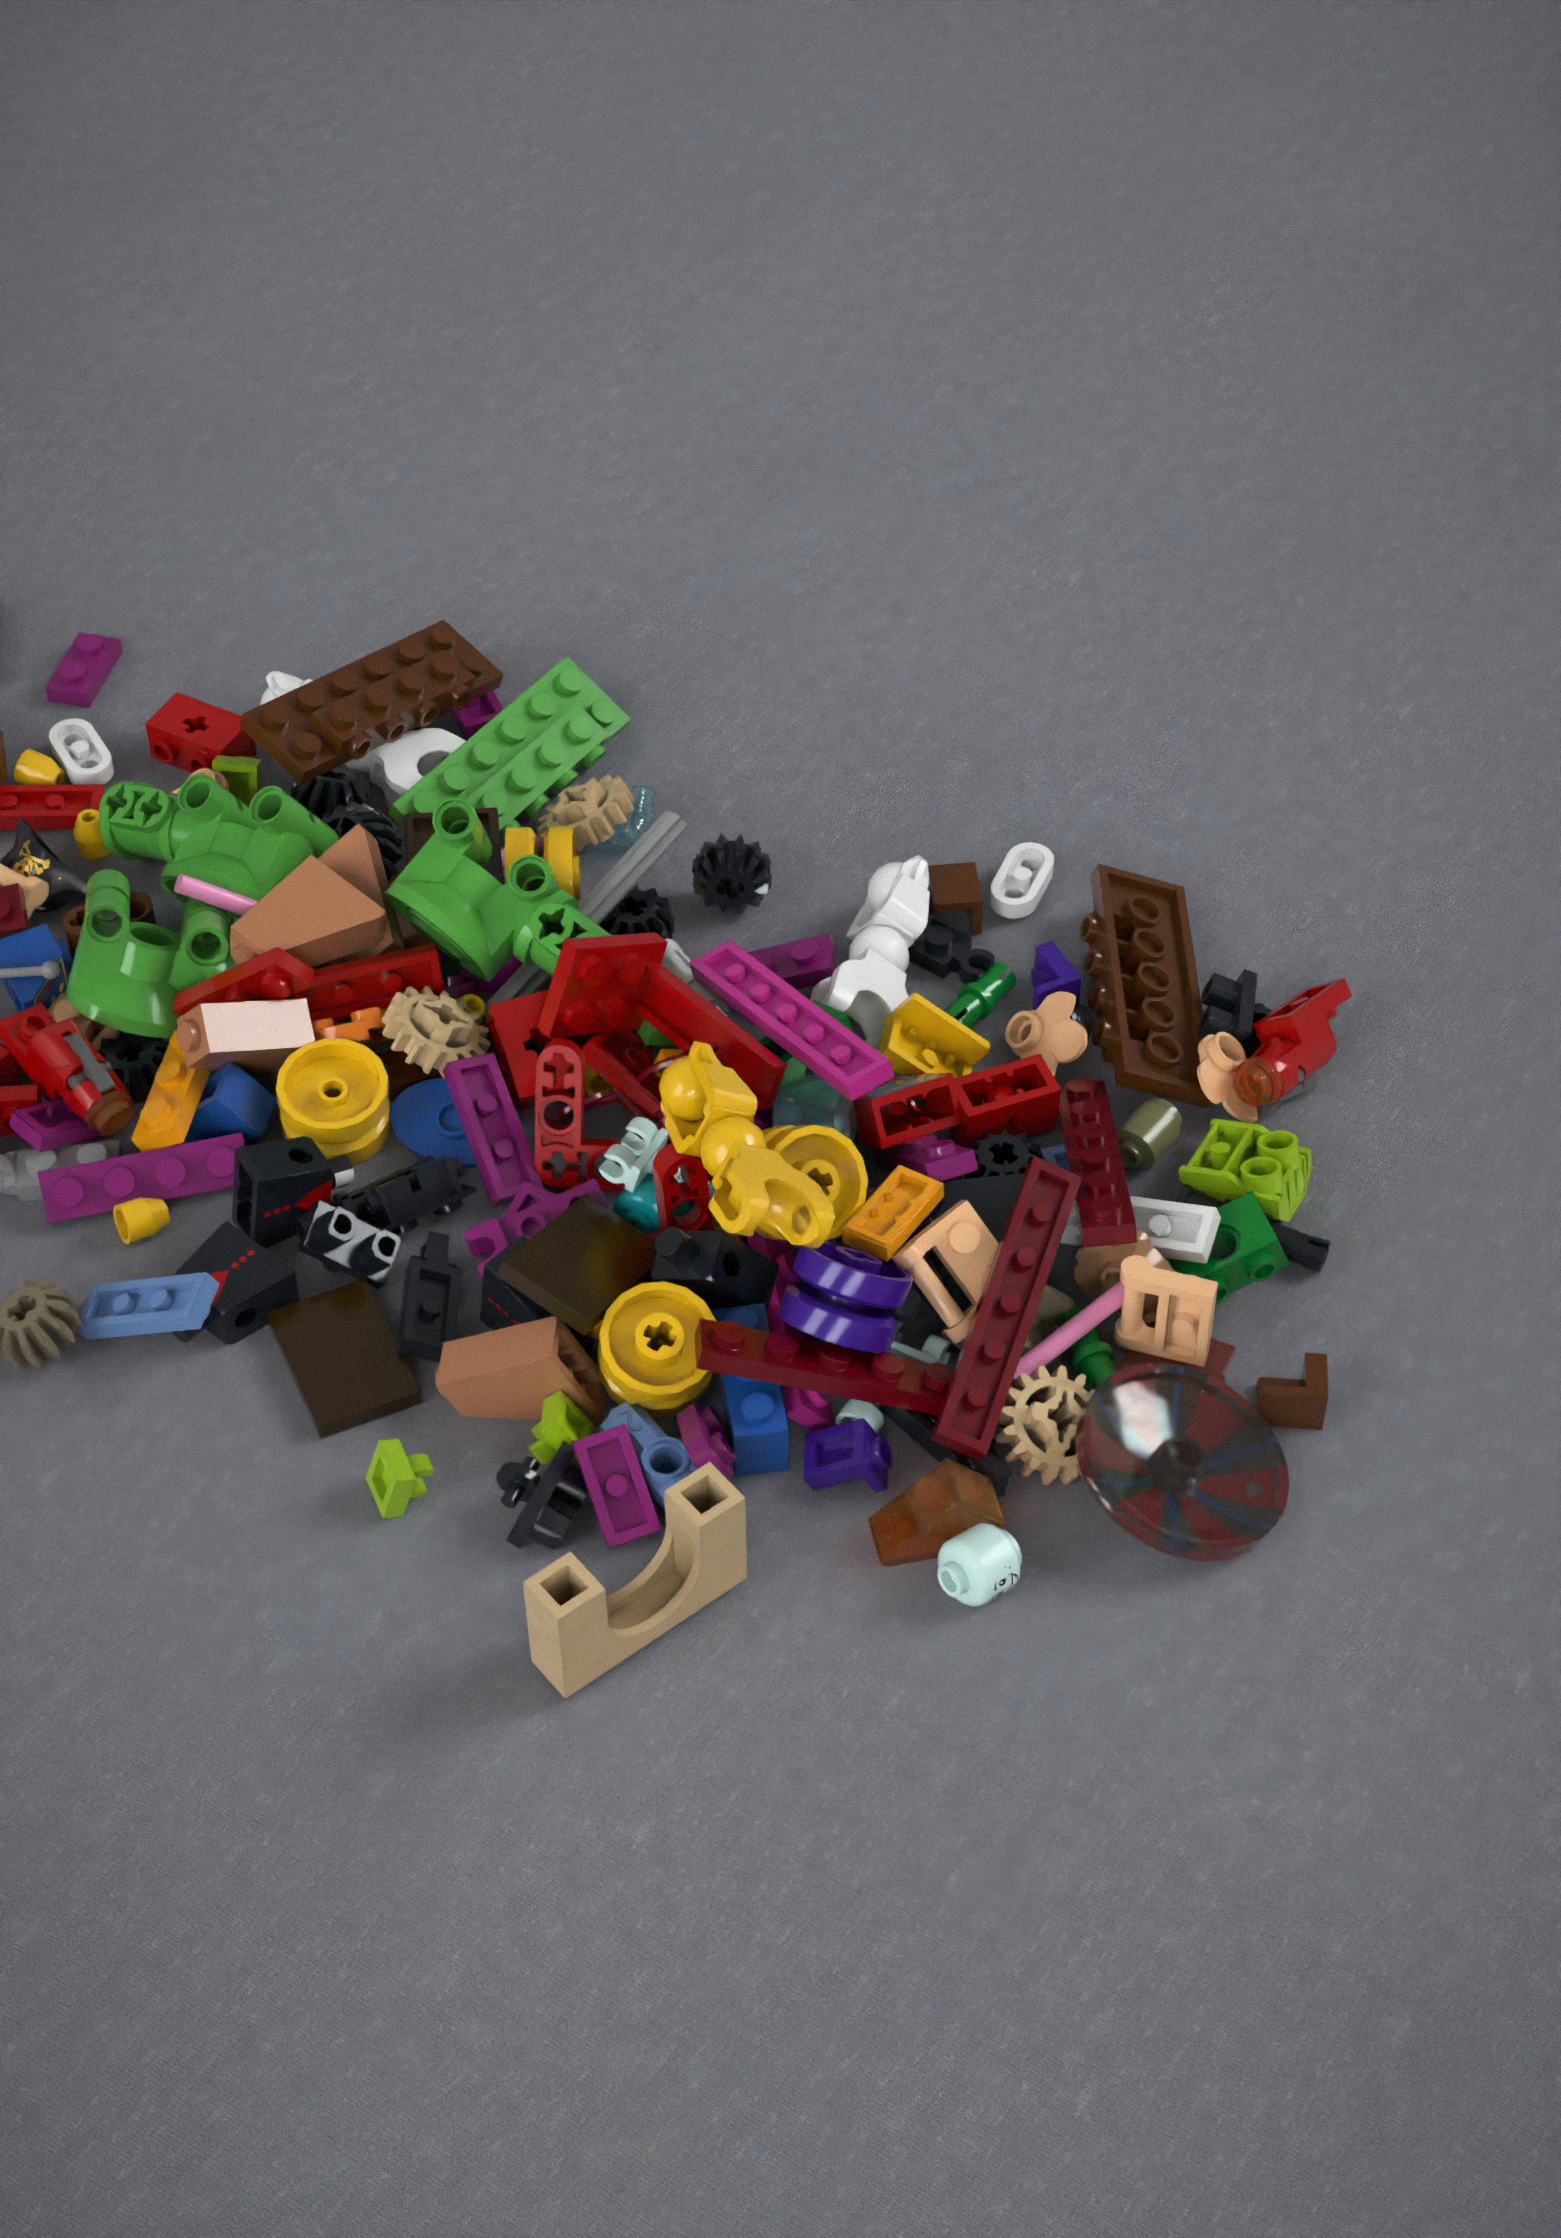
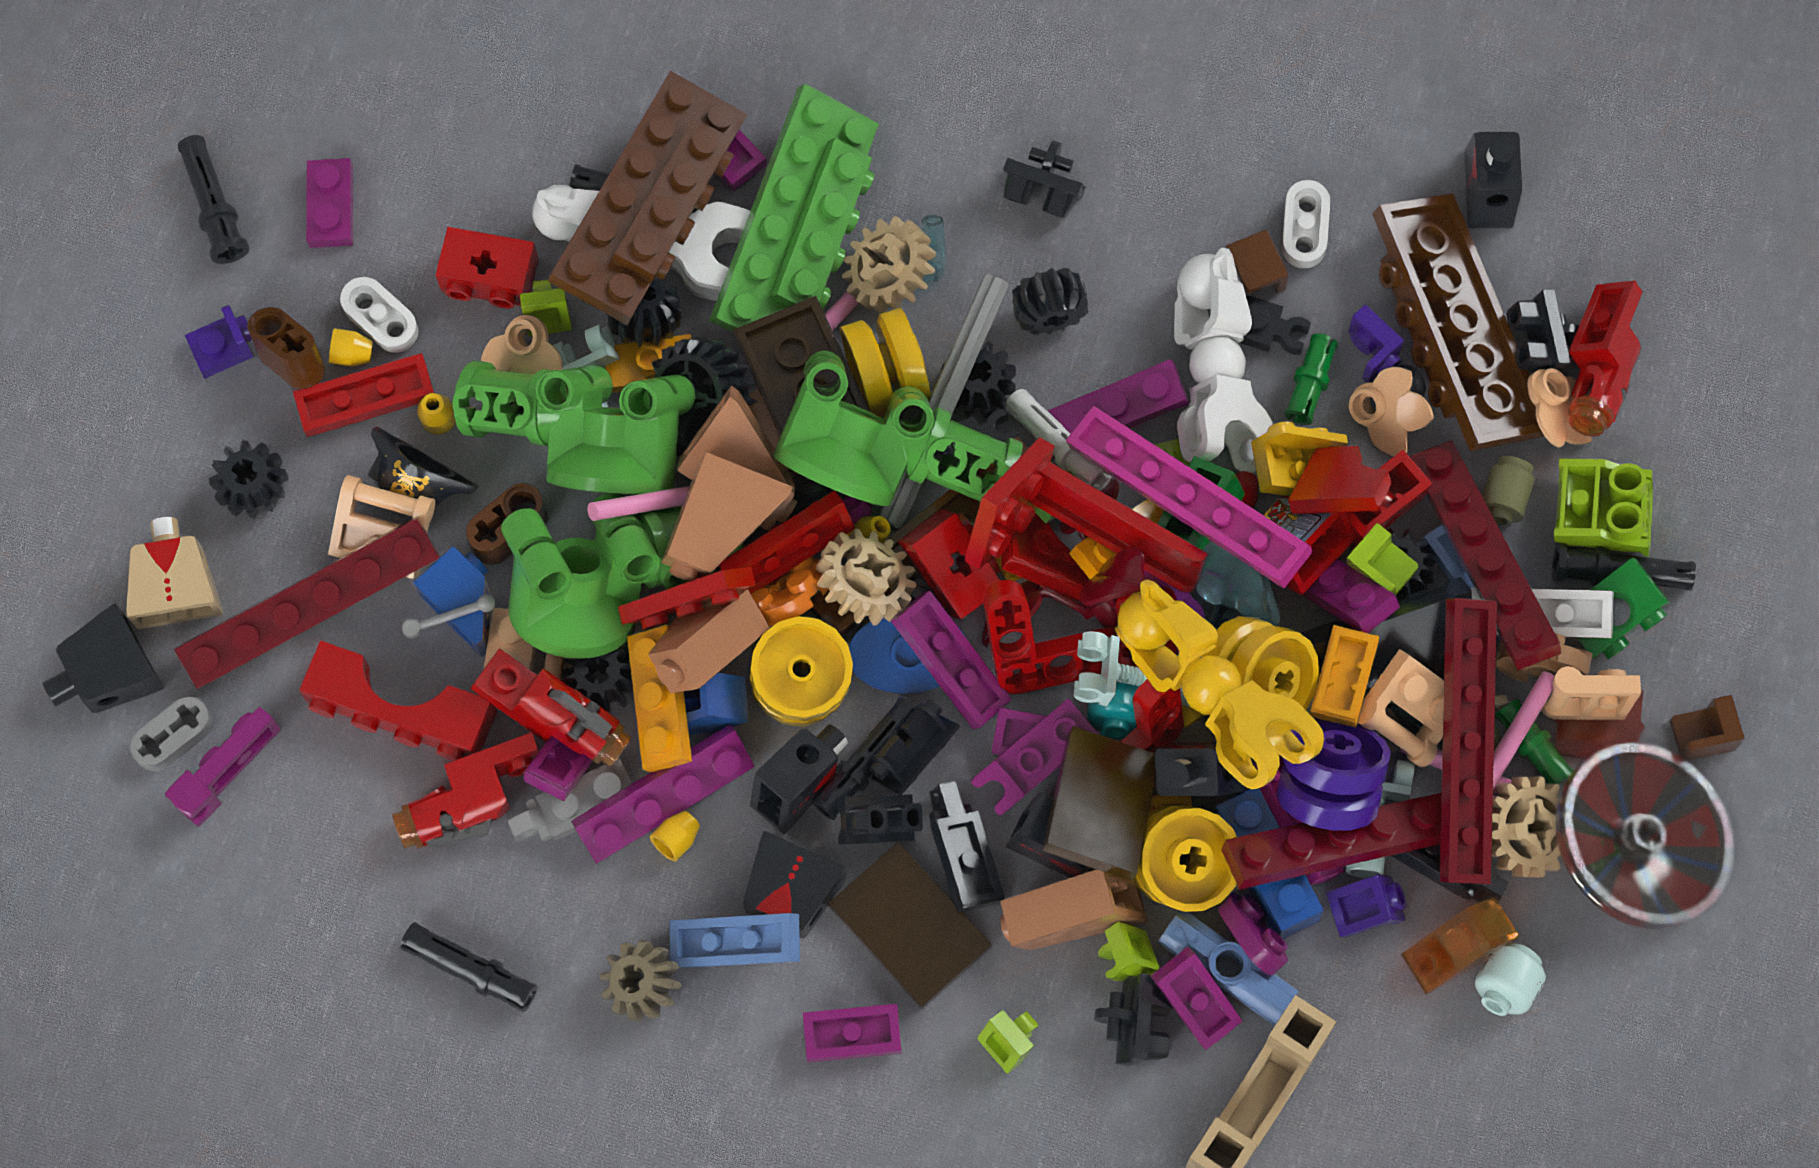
camera: 15 degrees left, 25 degrees up
(232, 1432) = (852, 1033): none -> magenta plate
(773, 782) = (1061, 190): none -> black hips
(955, 1060) = (1339, 483): none -> red tile
(975, 1127) = (1382, 560): none -> lime panel
(1235, 855) = (1490, 170): none -> black torso

